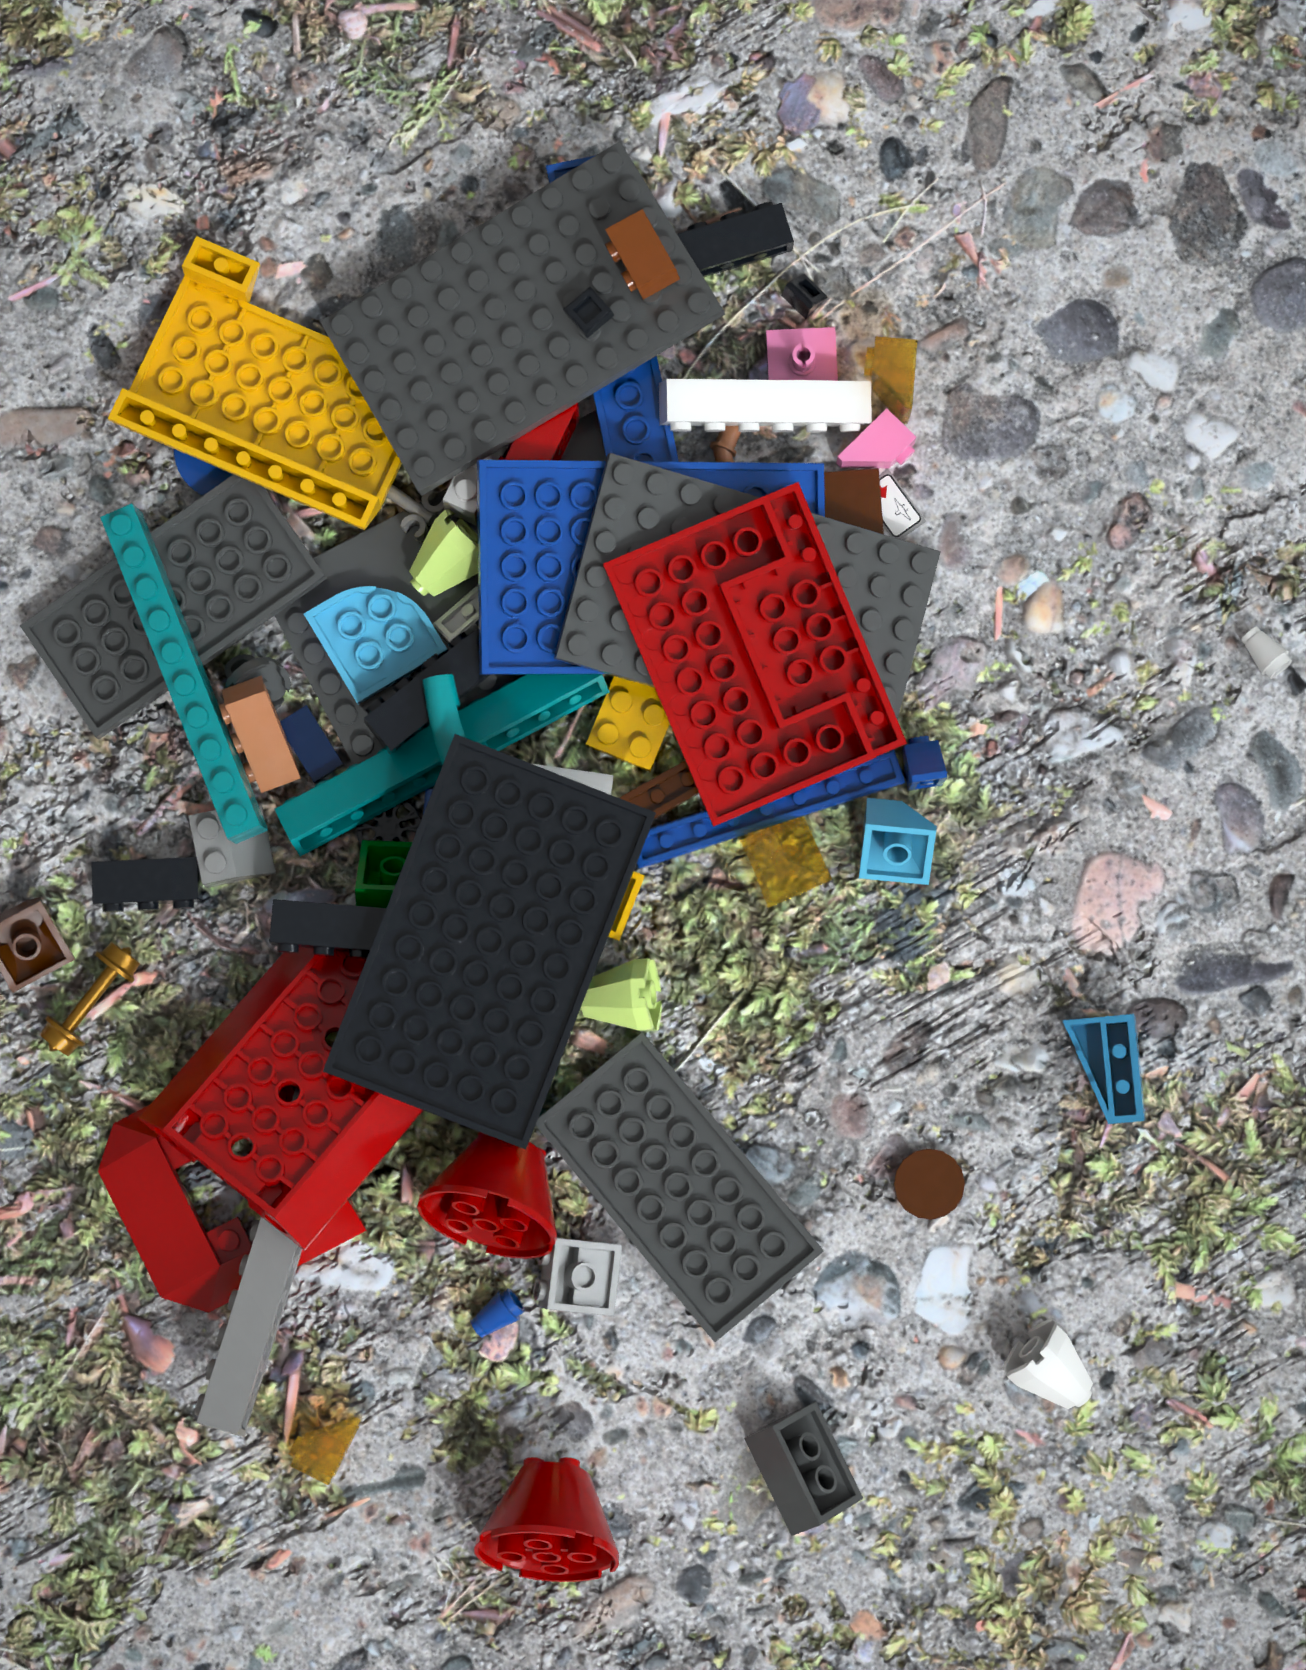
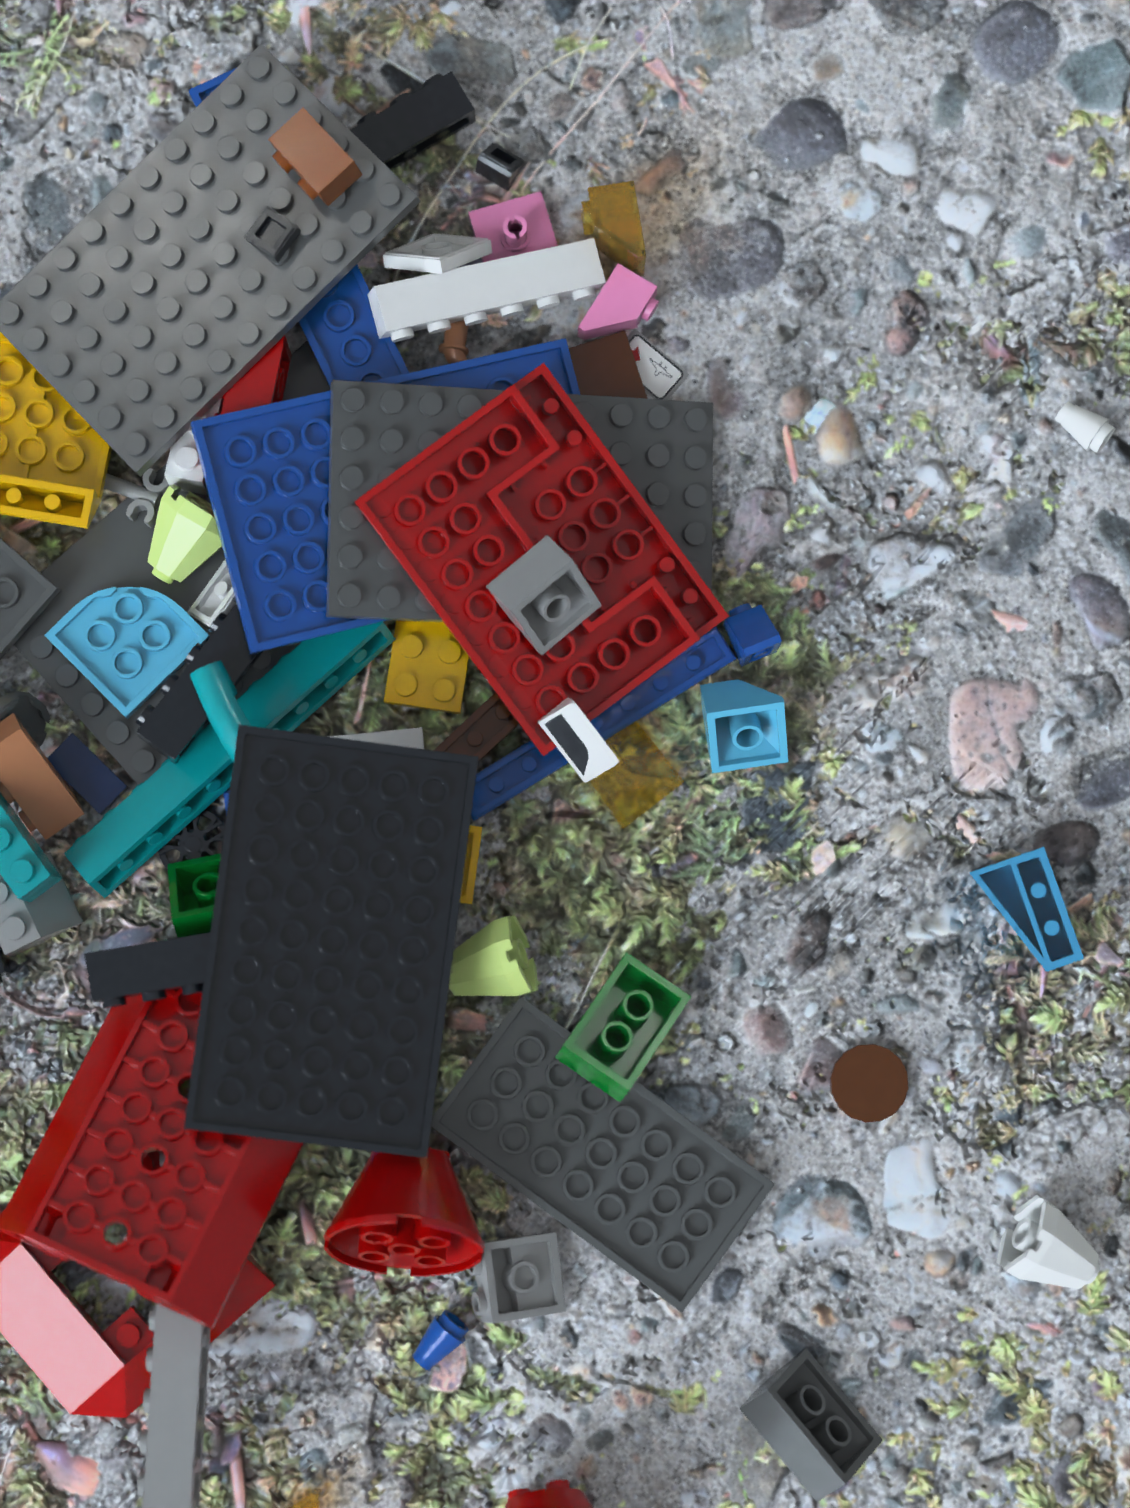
camera: 20 degrees left, 0 degrees up
(724, 1080) = (623, 1027): none -> green brick
(729, 361) = (437, 253): none -> white tile
(746, 820) = (578, 740): none -> white slope
(748, 685) = (544, 594): none -> light grey slope

